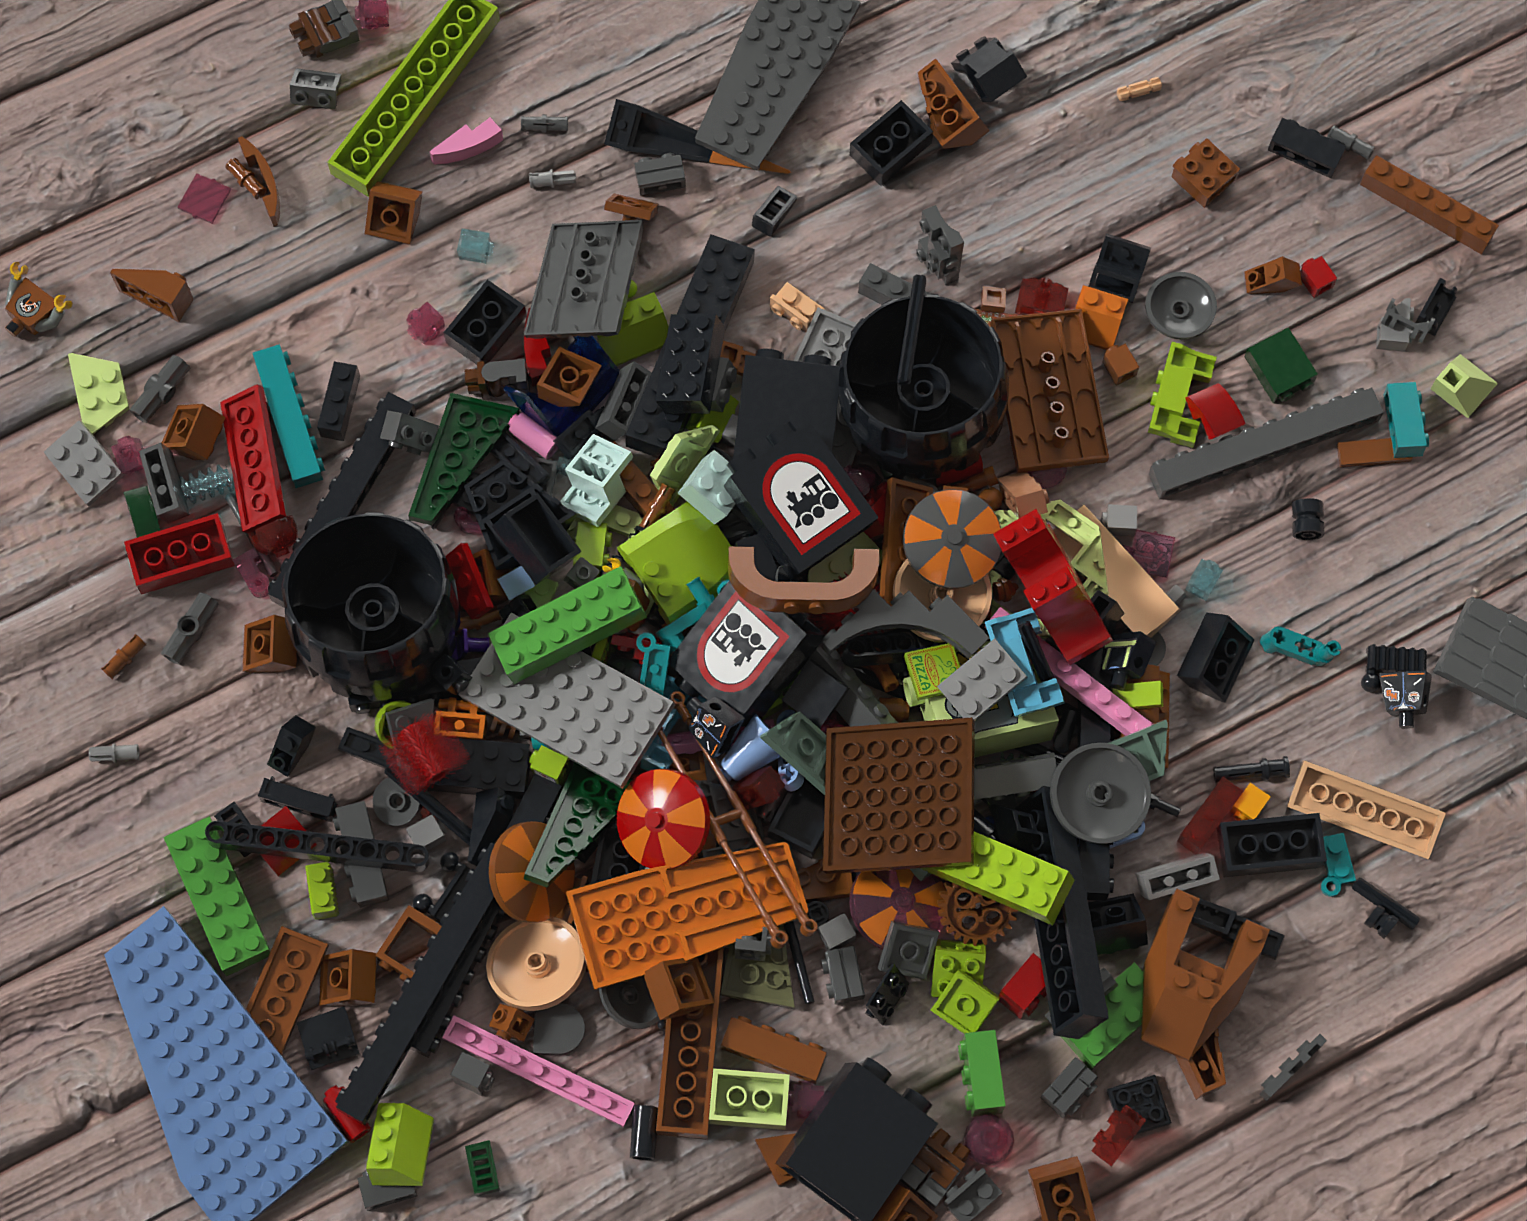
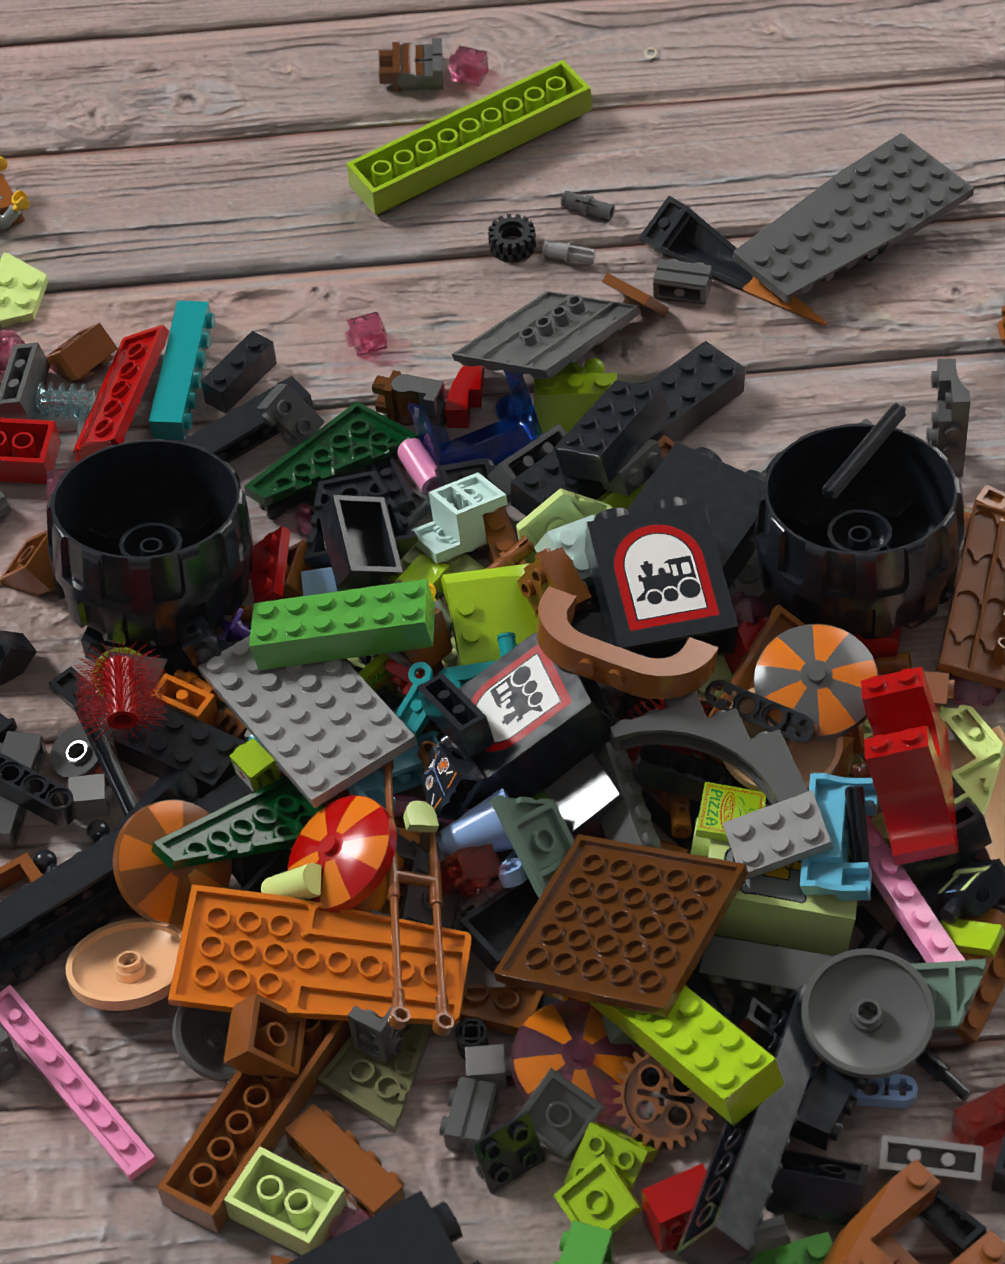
camera: 30 degrees right, 20 degrees down
(156, 289) = (117, 220): dark orange slope -> none
(159, 389) = (71, 308): dark grey piece -> none
(204, 198) = (215, 170): clear pink piece -> none
(246, 178) = (263, 163): dark orange pin -> none
(253, 158) = (278, 186): dark orange slope -> none
(314, 88) = (374, 111): dark grey bracket -> none
(393, 212) = (390, 231): dark orange slope -> none
(467, 143) = (498, 197): bright pink slope -> none
(475, 246) = (455, 284): clear light blue brick -> none
(485, 323) = (424, 346): black brick -> none
(502, 193) = (512, 248): none -> black tyre
(511, 1023) = (75, 1019): dark orange brick -> none
(557, 1030) = (115, 1047): dark grey tile -> none
(567, 378) = (478, 417): dark orange slope -> none
(638, 858) = (297, 883): none -> yellowish green brick
(643, 1132) = (144, 1197): black pin -> none
(697, 673) = (456, 715): none -> black brick
(707, 765) = (420, 817): none -> yellowish green tile
(713, 527) = (552, 570): none -> dark orange brick
(766, 223) = (779, 355): black slope -> none
(794, 306) = (762, 438): light nougat bracket -> none
(799, 962) = (427, 1085): black bar -> none
(891, 143) = (946, 323): black brick -> none
(924, 586) = (762, 708): none -> black beam

